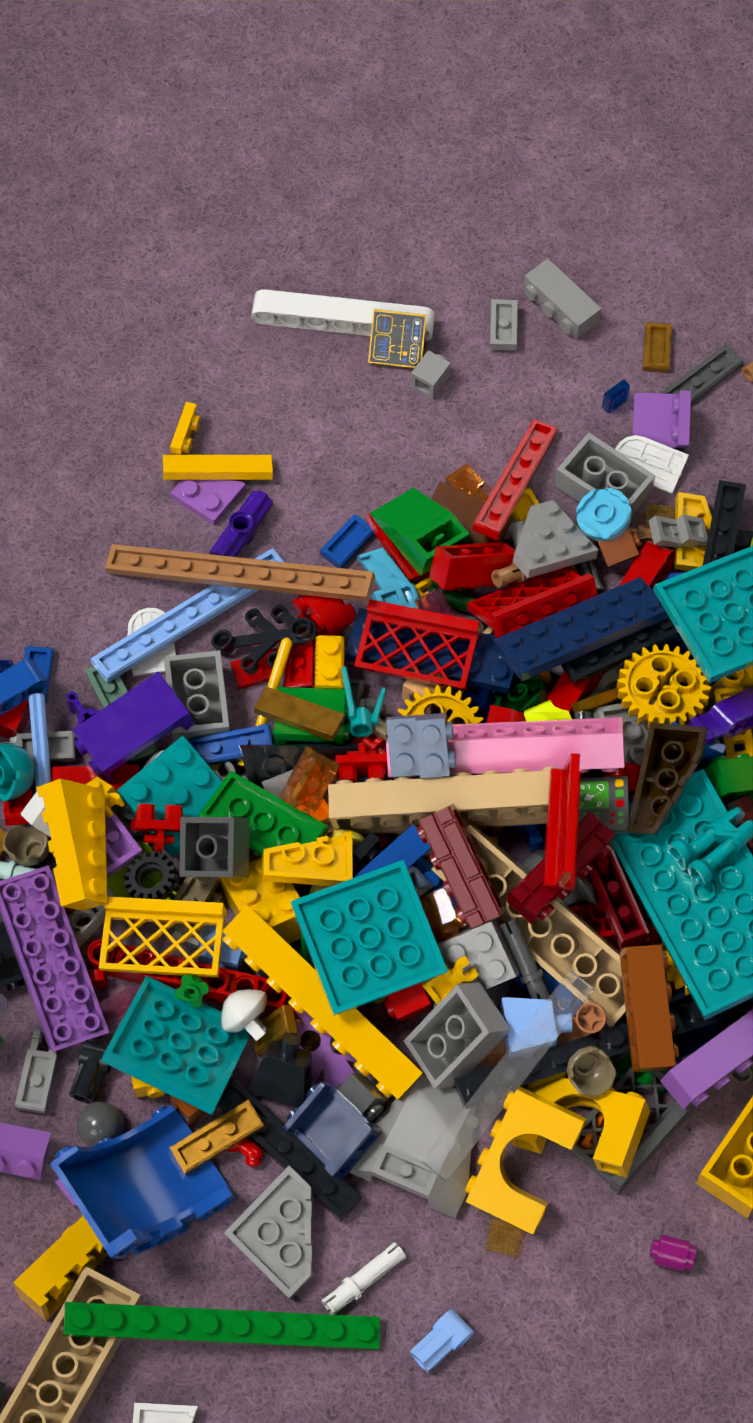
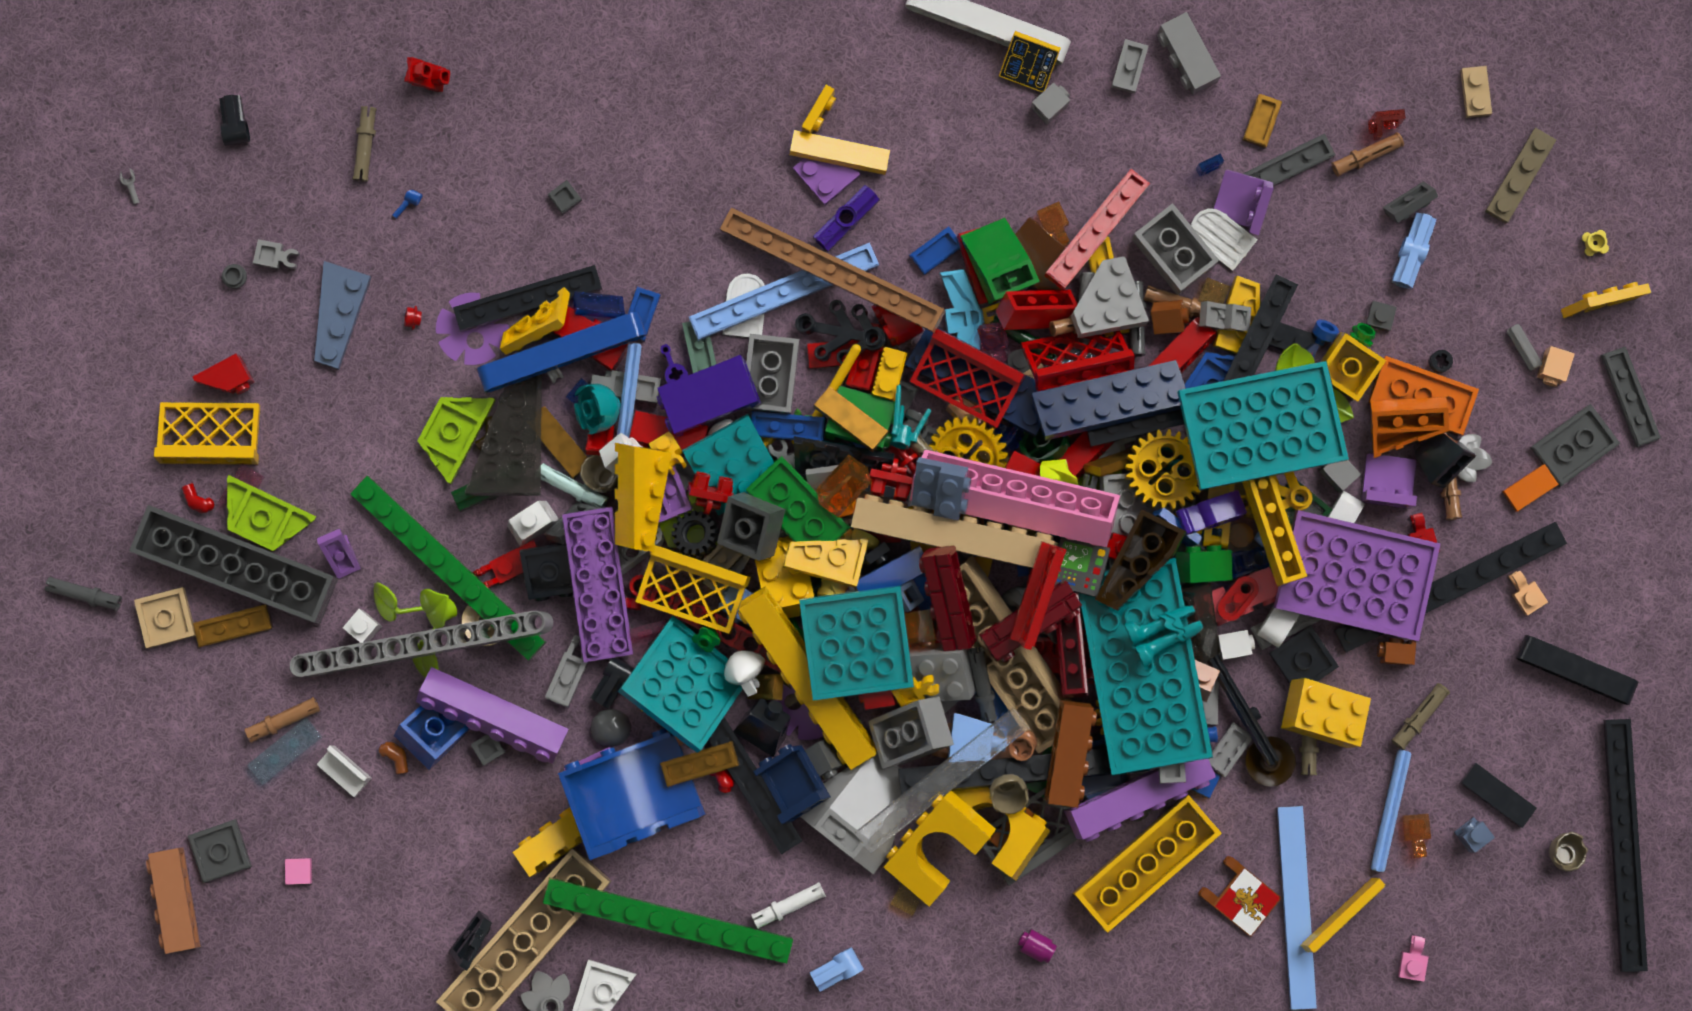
camera: 15 degrees right, 20 degrees up
(278, 1232) = (730, 853): light grey plate -> none
(604, 514) = (1162, 289): medium azure tile -> none

